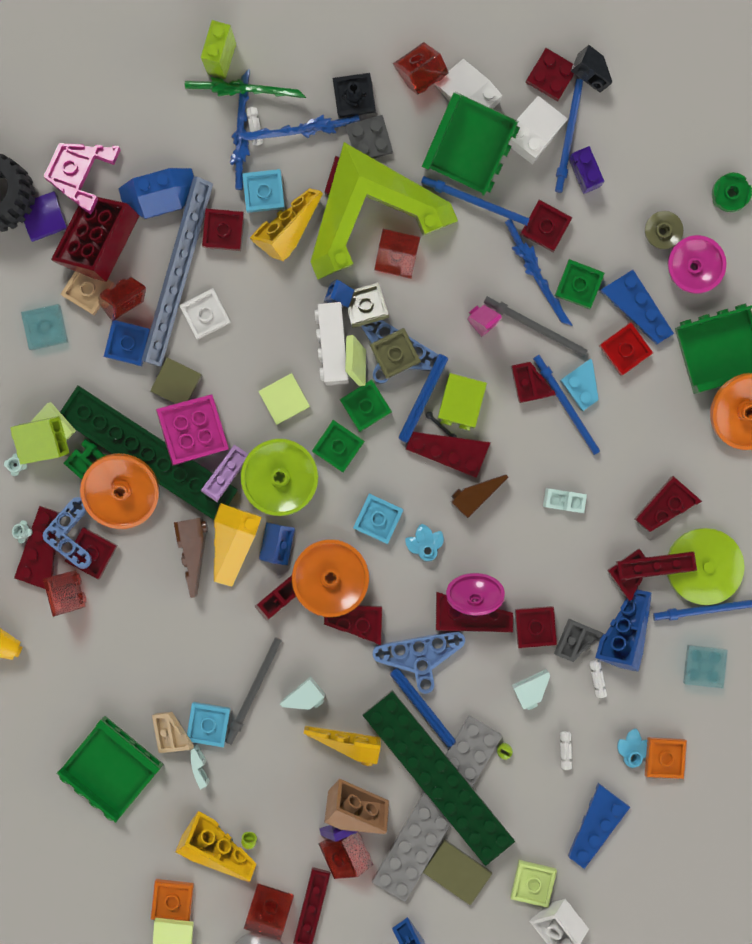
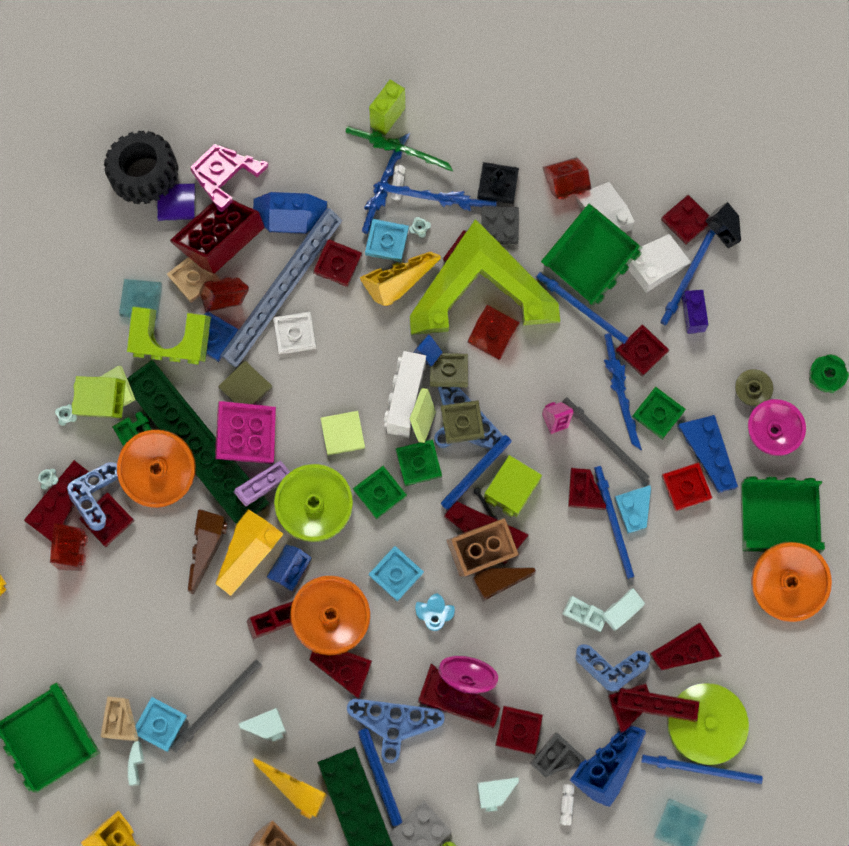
camera: 15 degrees right, 15 degrees down
(63, 371) = (143, 341): none -> lime arch
(288, 161) = (419, 222): none -> light aqua plate
(451, 471) = (482, 547): none -> medium nougat slope
(600, 485) = (623, 610): none -> light aqua slope
(603, 550) = (611, 672): none -> medium blue beam

